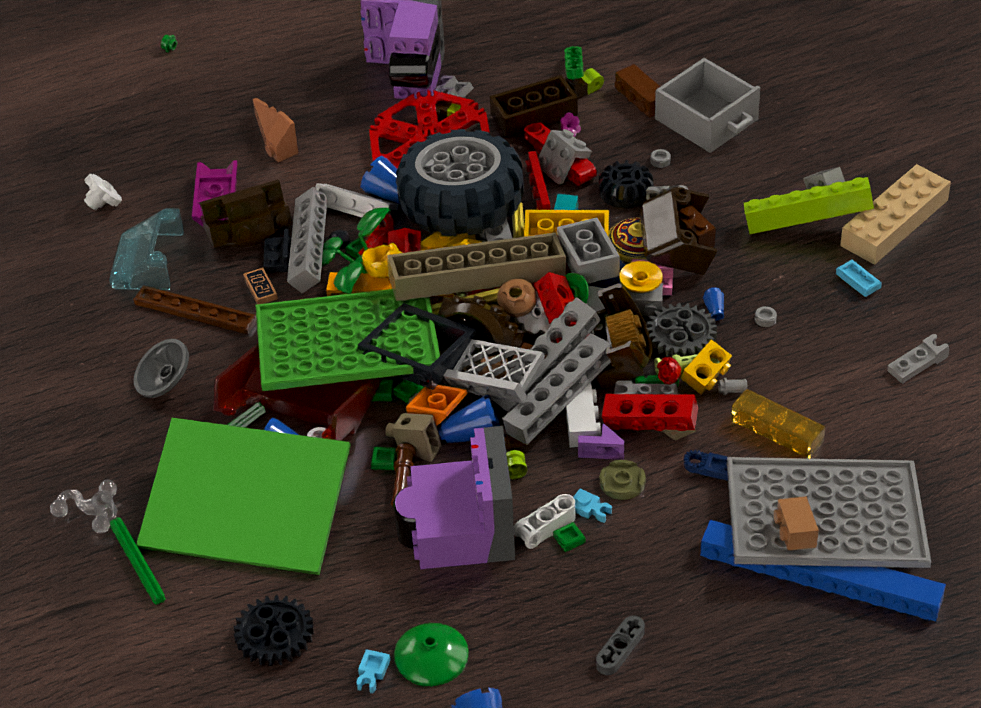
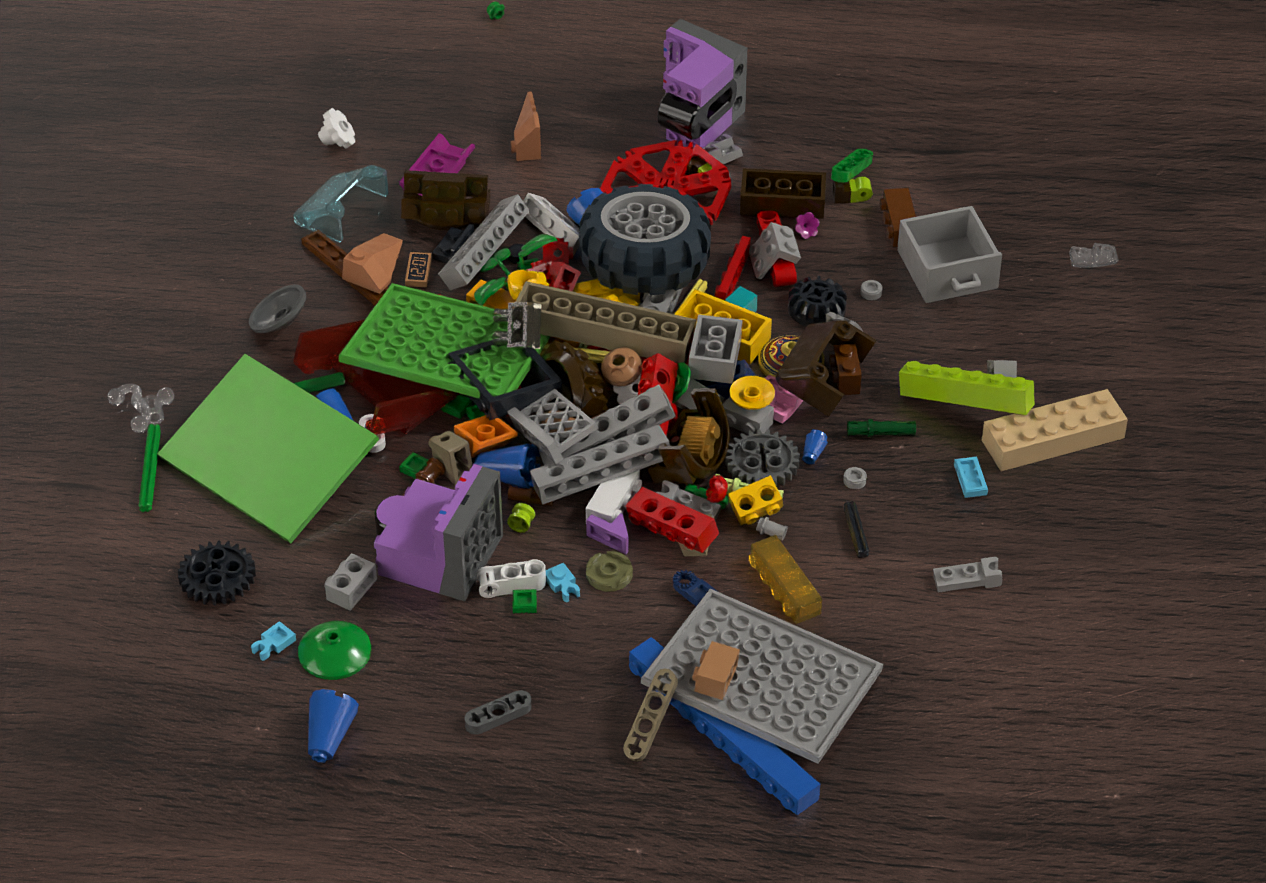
camera: 25 degrees right, 0 degrees up
(219, 296) = (372, 262): none -> nougat wedge
(404, 585) = (350, 581): none -> light grey brick
(416, 294) = (523, 325): none -> clear smoke brick
(750, 269) = (881, 428): none -> dark green pin
(763, 587) = (654, 716): none -> dark tan beam
(800, 358) = (856, 529): none -> black axle
(816, 66) = (1098, 256): none -> clear slope

